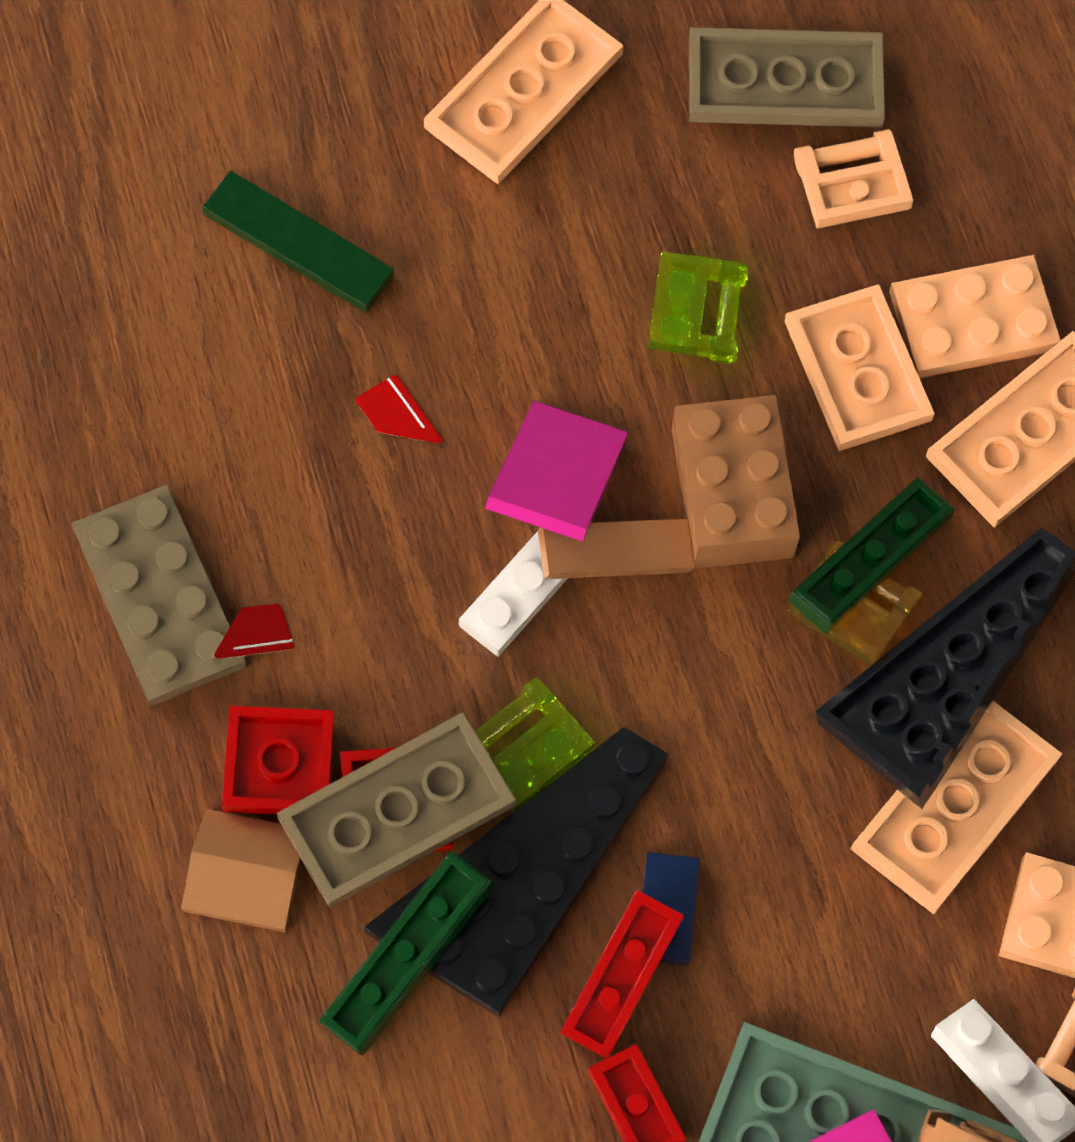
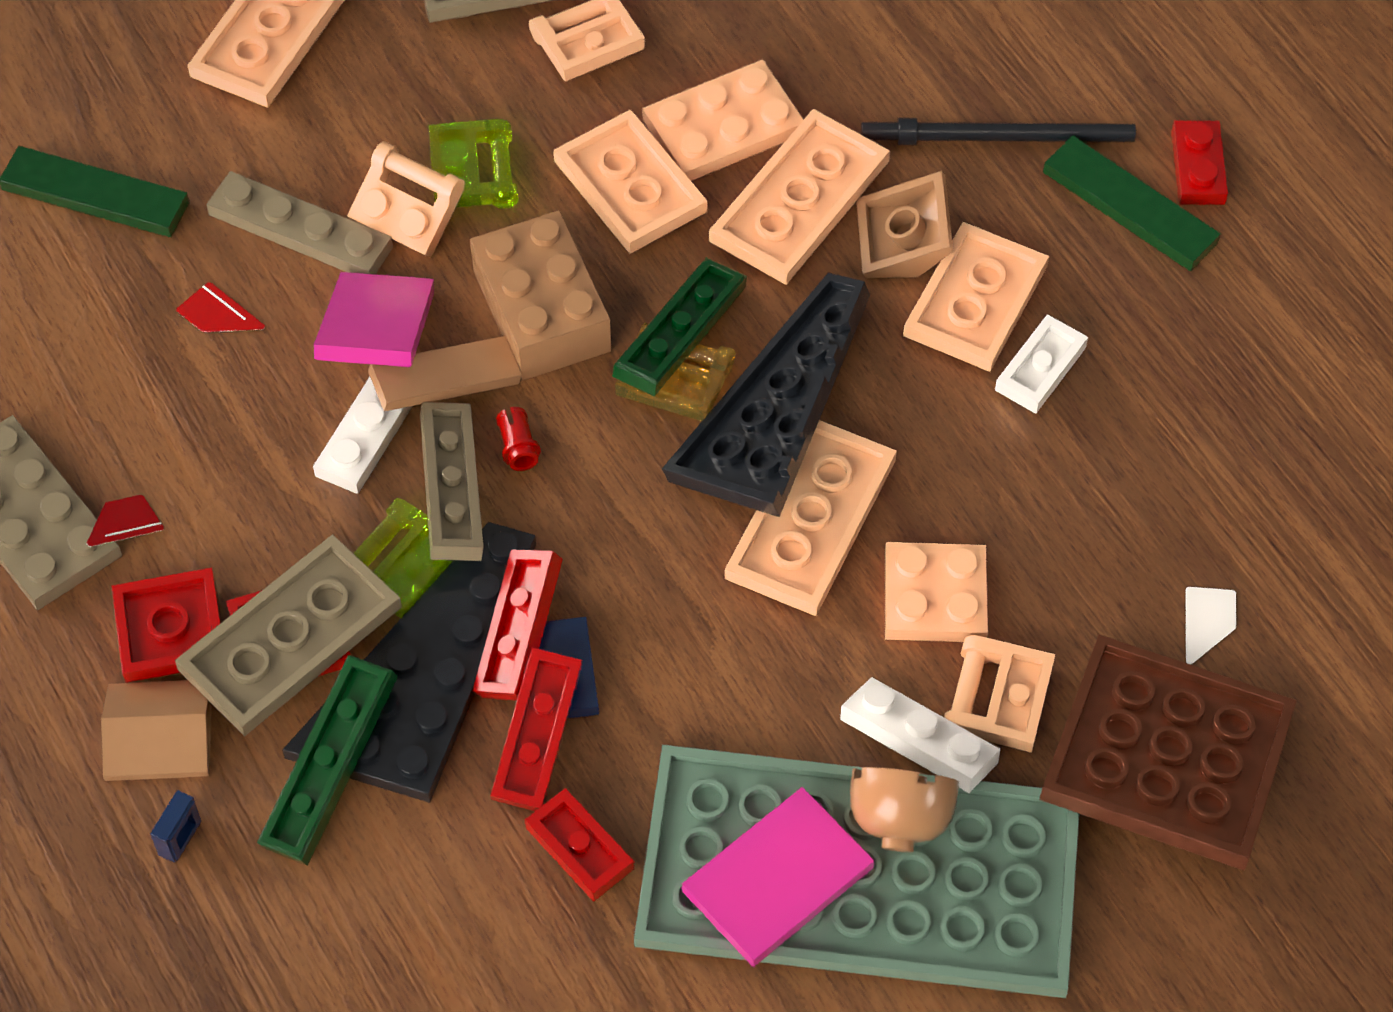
camera: 10 degrees left, 10 degrees down
(242, 985) = (176, 826): none -> dark blue tile
(502, 333) = (299, 225): none -> dark tan plate
(595, 676) = (451, 482): none -> dark tan plate
(610, 349) = (399, 213): none -> light nougat plate
(628, 851) = (517, 622): none -> plate
(674, 641) = (520, 449): none -> red pin

